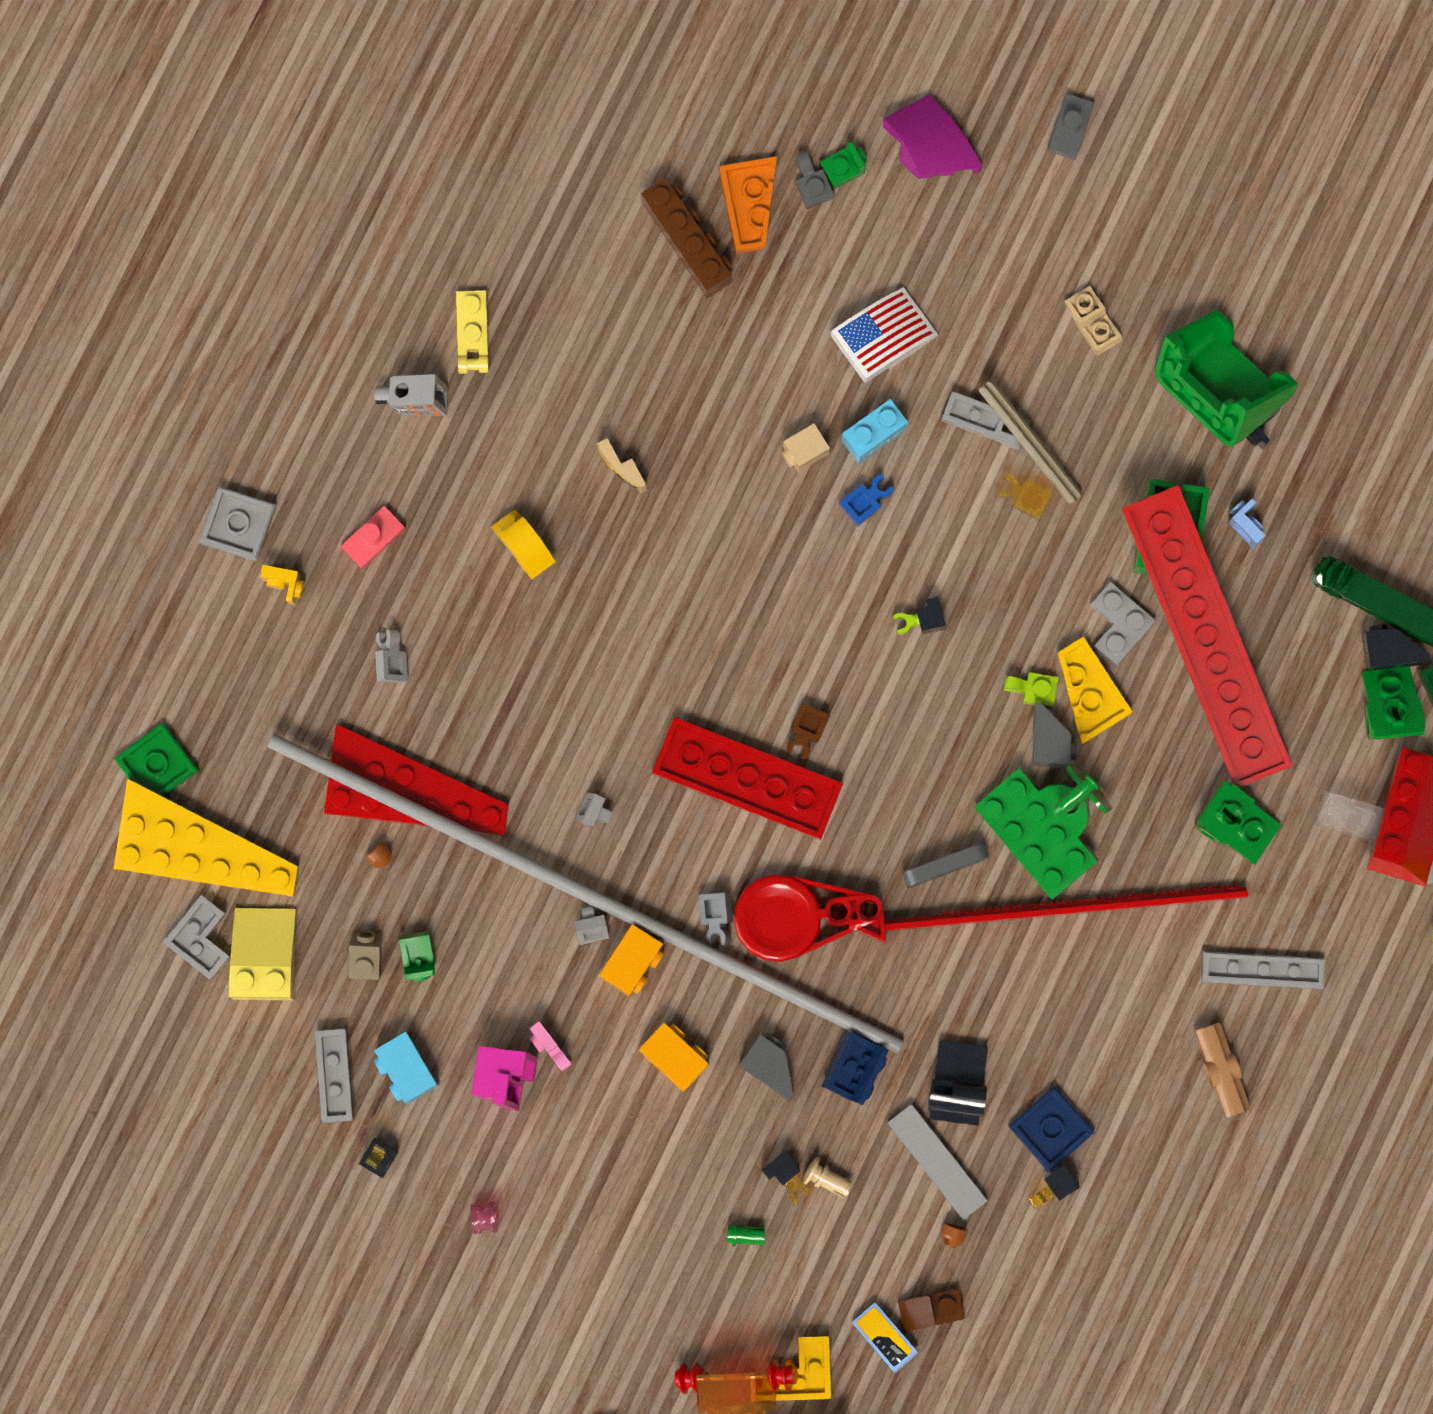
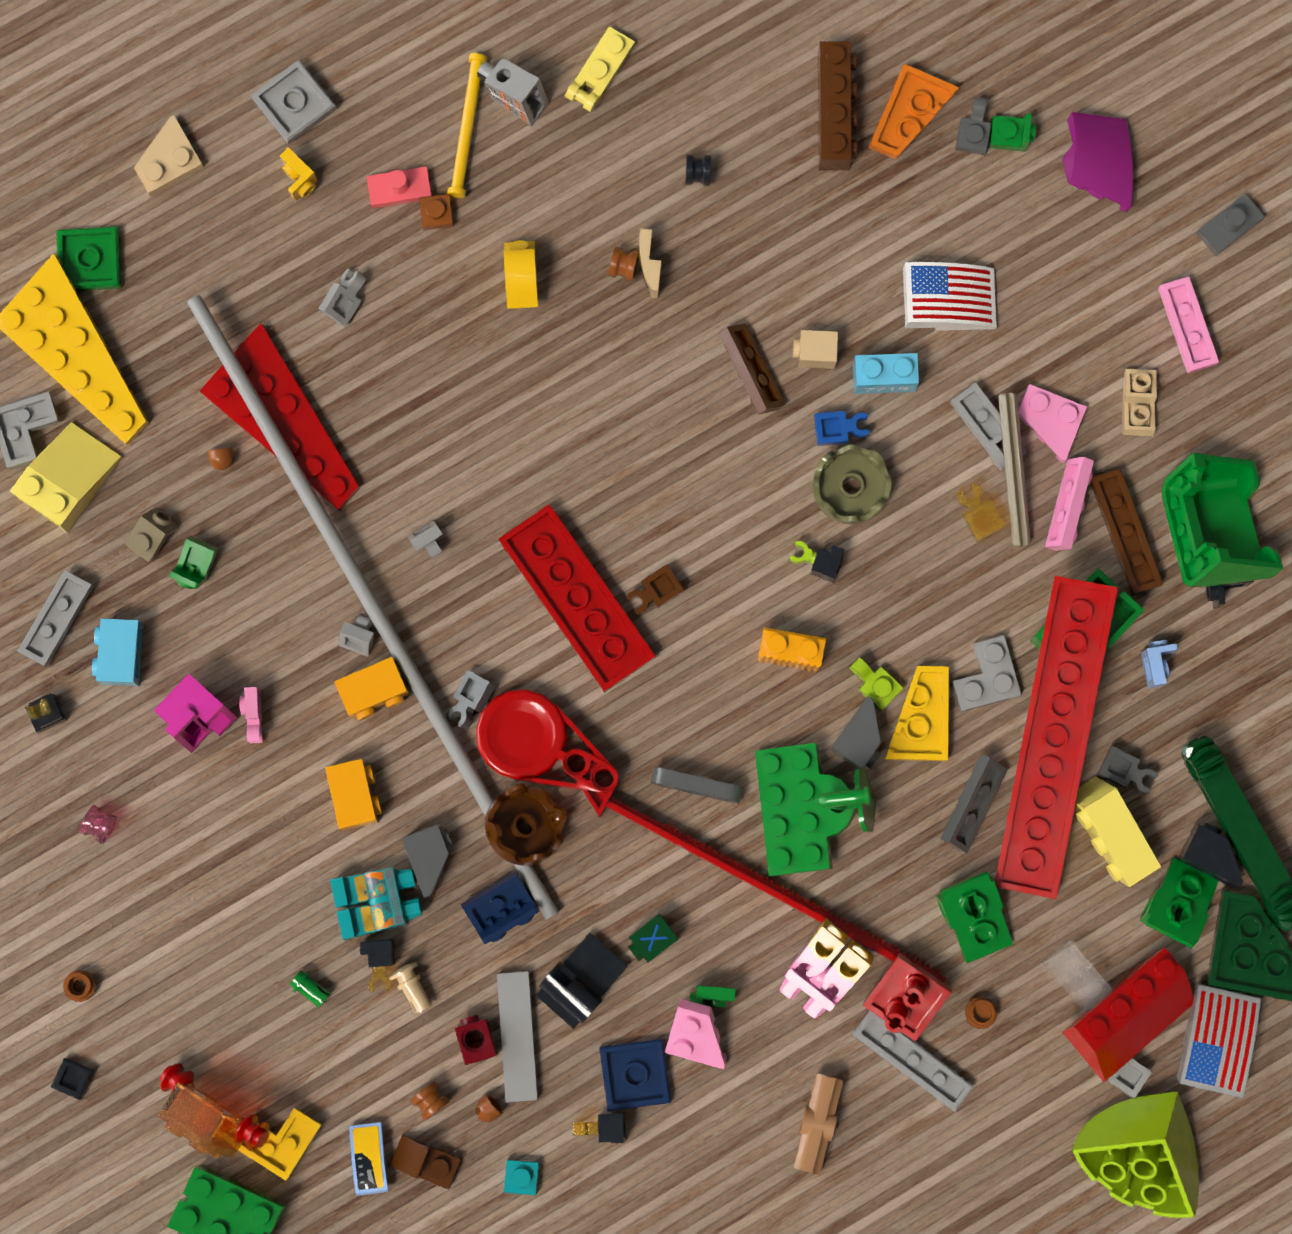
camera: 30 degrees right, 0 degrees up
(164, 639) = (167, 159): none -> tan wing
(395, 452) = (456, 189): none -> yellow bar
(417, 538) = (436, 212): none -> dark orange plate
(550, 1350) = (69, 986): none -> dark orange plate
(601, 480) = (623, 264): none -> dark orange wheel
(609, 363) = (698, 169): none -> black wheel
(755, 1122) = (384, 897): none -> teal hips
(763, 498) = (752, 368): none -> reddish brown plate
(843, 975) = (541, 814): none -> reddish brown plate
(902, 1258) = (429, 1100): none -> dark orange wheel
(907, 519) = (855, 463): none -> olive plate
(920, 1190) = (470, 1054): none -> dark red brick
(948, 705) = (791, 649): none -> light orange brick
(993, 1012) = (651, 939): none -> dark green brick
(1015, 1271) = (521, 1177): none -> teal plate
(1033, 380) = (1052, 419): none -> bright pink wing
(1075, 1023) = (716, 995): none -> green bracket
(1079, 1065) = (695, 1035): none -> bright pink wing
(1091, 231) = (1188, 325): none -> bright pink plate
(1092, 440) = (1069, 504): none -> bright pink plate
(1144, 954) = (818, 978): none -> hips
(1152, 433) = (1126, 532): none -> reddish brown plate
(1176, 733) = (974, 803): none -> dark grey plate
(1226, 923) = (907, 997): none -> red plate
(1274, 627) = (1122, 769): none -> dark grey plate
(1292, 896) = (981, 1012): none -> dark orange plate
(1302, 682) = (1114, 832): none -> light yellow wedge

